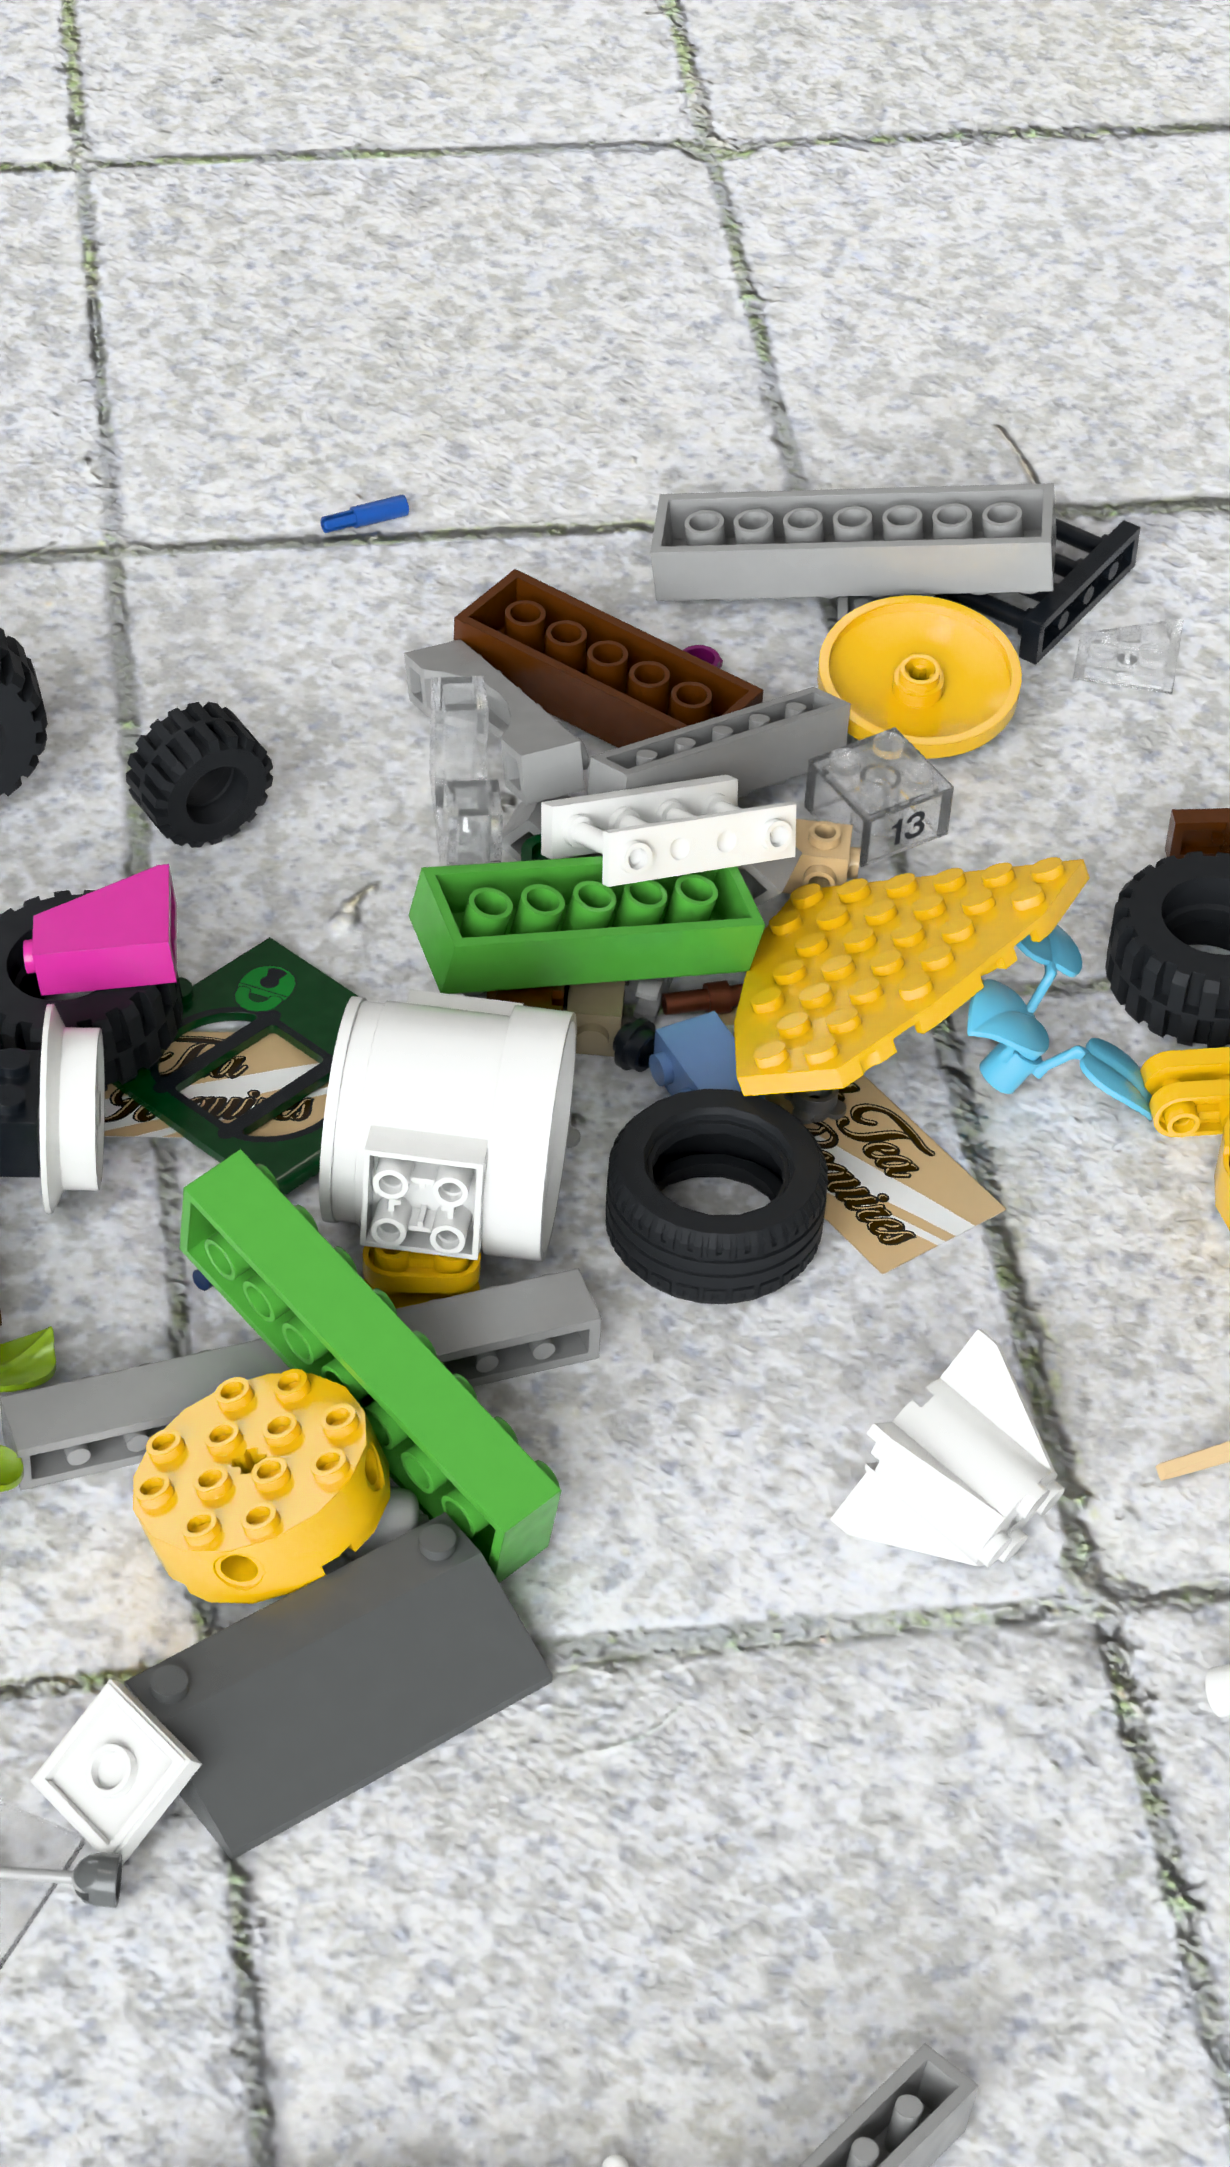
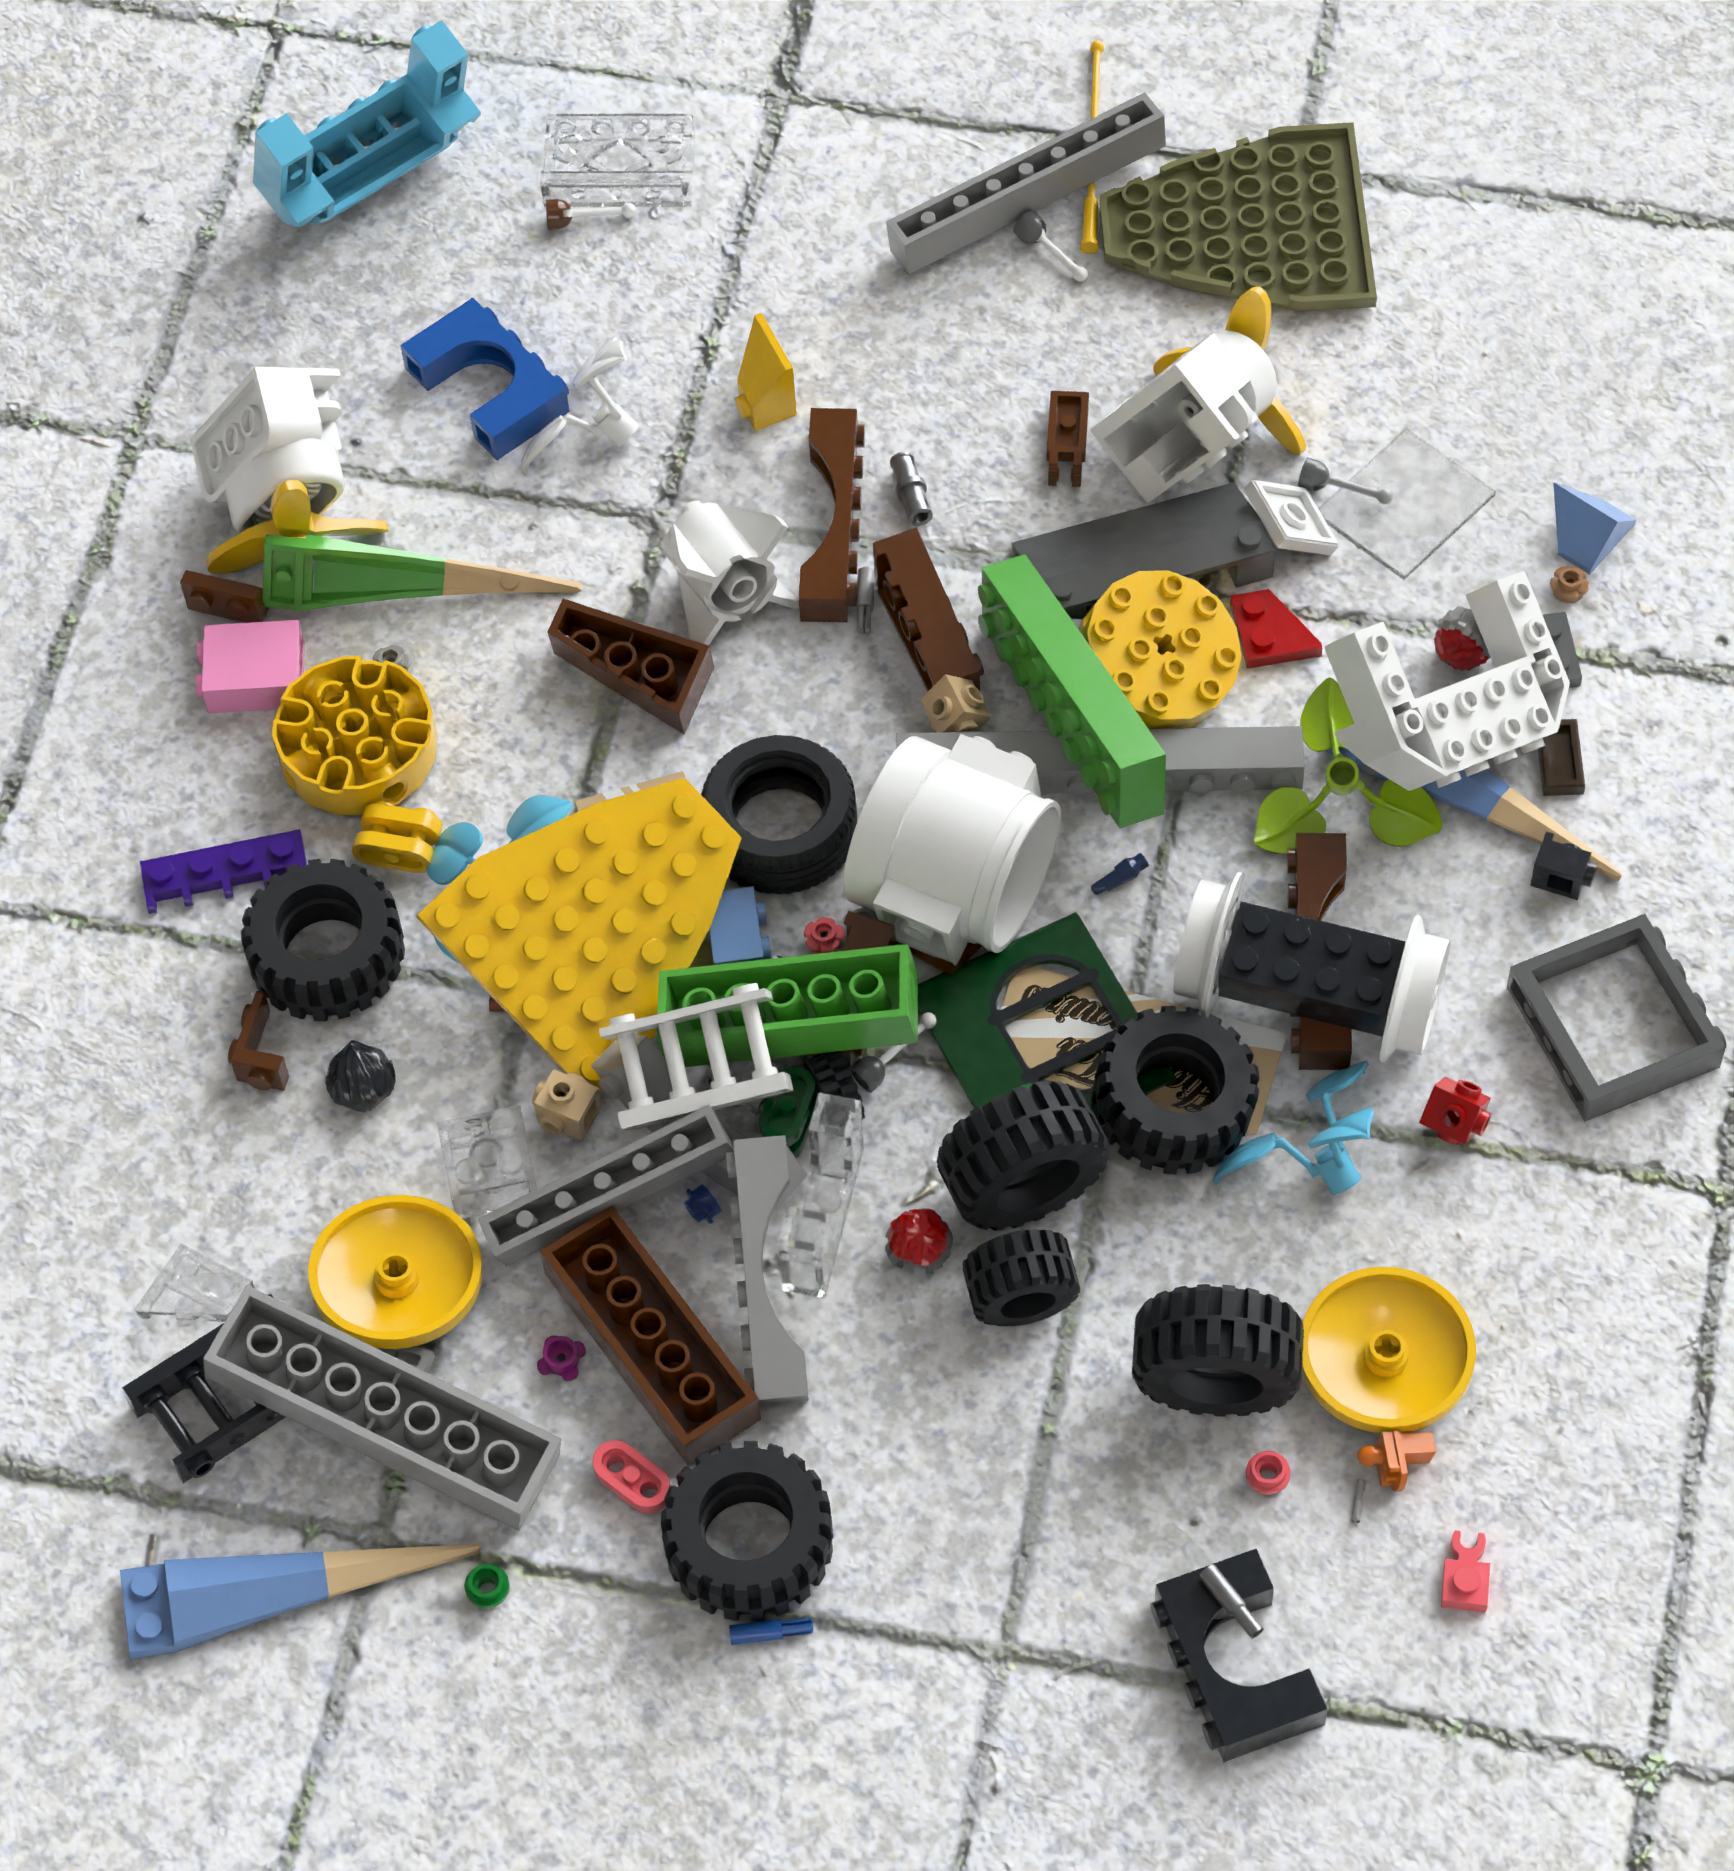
camera: 155 degrees left, 15 degrees up
(103, 1627) = (1270, 630): none -> red wing
(108, 937) = (1149, 1046): dark pink slope -> none
(241, 842) = (1023, 1155): none -> black tyre
(312, 1838) = (1200, 404): none -> white brick
(338, 819) = (919, 1239): none -> red piece
(416, 543) = (737, 1478): none -> black tyre
(529, 1857) = (1067, 433): none -> reddish brown hinge
(534, 1386) = (955, 706): none -> tan brick
(575, 581) = (633, 1479): none -> coral plate
(596, 1111) = (823, 944): none -> coral plate
(634, 1499) = (922, 610): none -> reddish brown wedge
(671, 482) = (484, 1574): none -> green plate
(738, 1541) = (865, 598): none -> light grey pin
(741, 1708) = (911, 488): none -> flat silver pin
(886, 1730) = (825, 576): none -> reddish brown arch
(942, 436) = (205, 1598): none -> medium blue plate
(1043, 1802) = (765, 379): none -> yellow slope
(1054, 1353) = (635, 660): none -> reddish brown wedge
(1085, 838) = (360, 1077): none -> black hair

